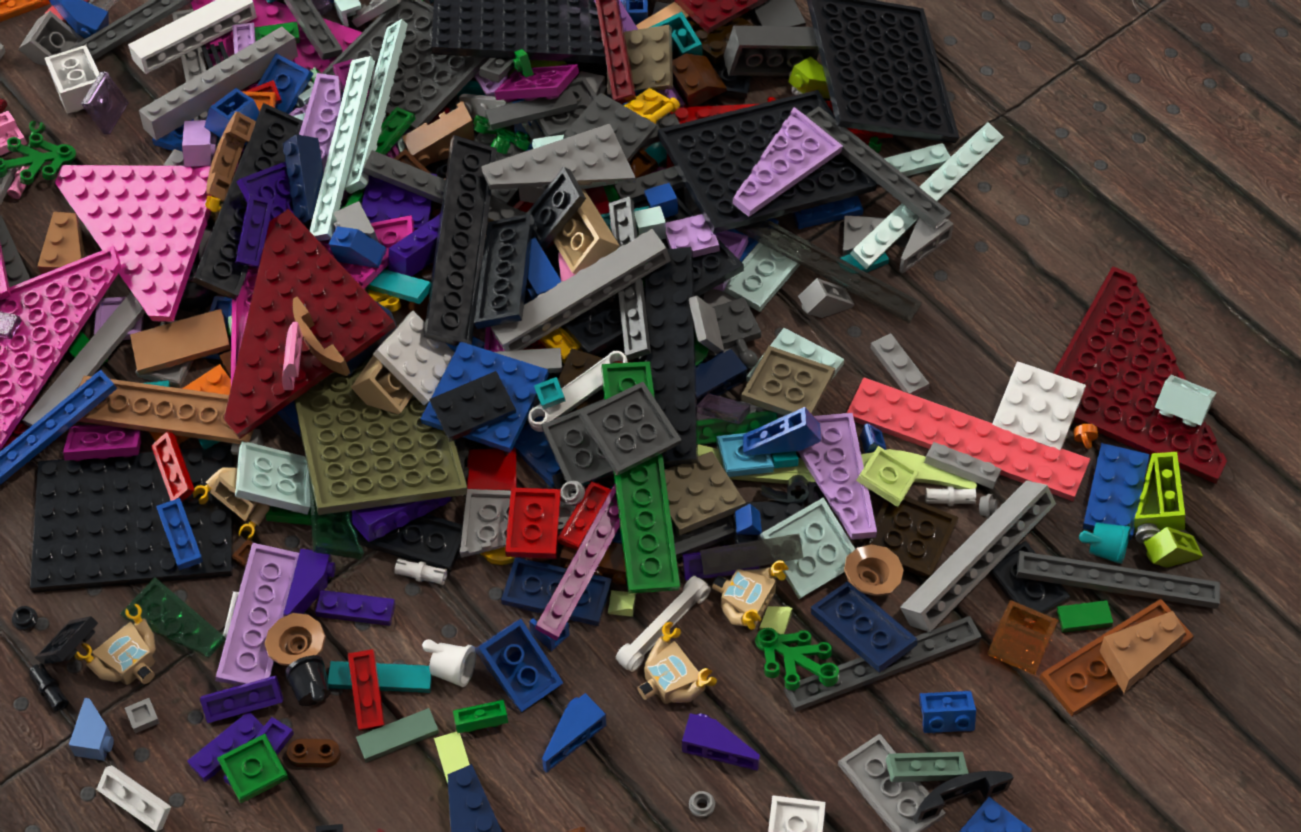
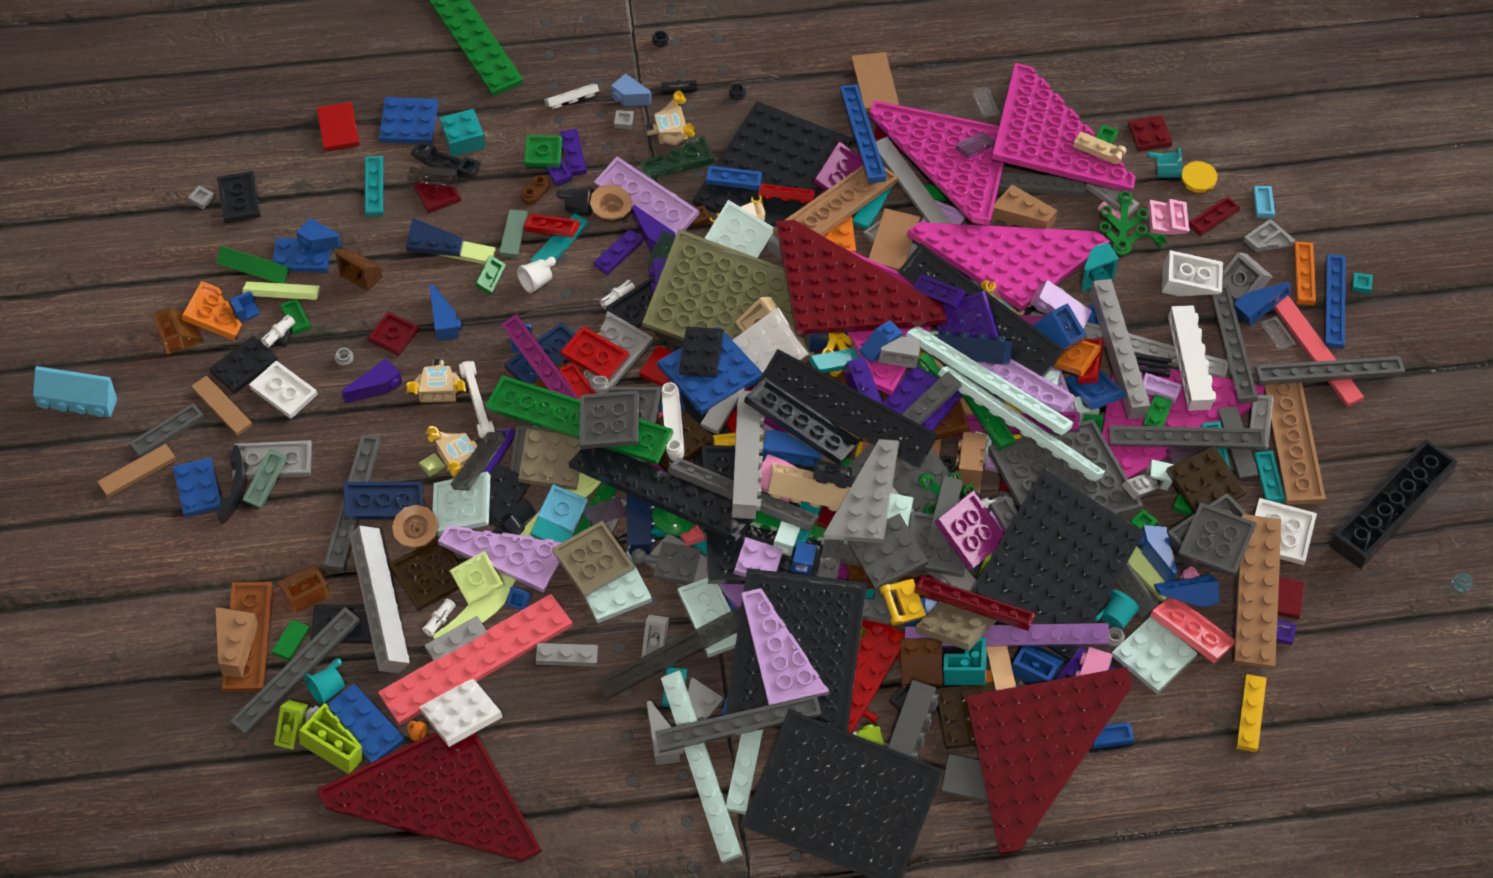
camera: 120 degrees right, 0 degrees up
(64, 643) = (694, 93): black plate -> none
(105, 103) = (1150, 279): clear purple tile -> none
(113, 146) = (1099, 266): none -> teal slope
(228, 154) = (1022, 306): medium nougat slope -> none
(241, 699) = (594, 166): dark purple plate -> none
(292, 356) = (799, 253): bright pink slope -> none
(329, 356) = (809, 274): medium nougat slope -> none
(519, 665) = (502, 306): blue slope -> none
(522, 63) = (995, 528): green plate -> none
(549, 393) = (677, 397): teal plate -> none
(630, 775) = (393, 333): none -> dark red tile
(706, 324) = (672, 526): light grey tile -> none
(748, 521) = (503, 474): blue slope -> none
(770, 641) = (395, 452): green plant -> none
(785, 434) = (549, 526): blue slope -> none
(948, 711) = (294, 517): blue bracket -> none
(987, 505) = (412, 632): light grey plate -> none
(1185, 400) = (388, 806): light aqua slope -> none

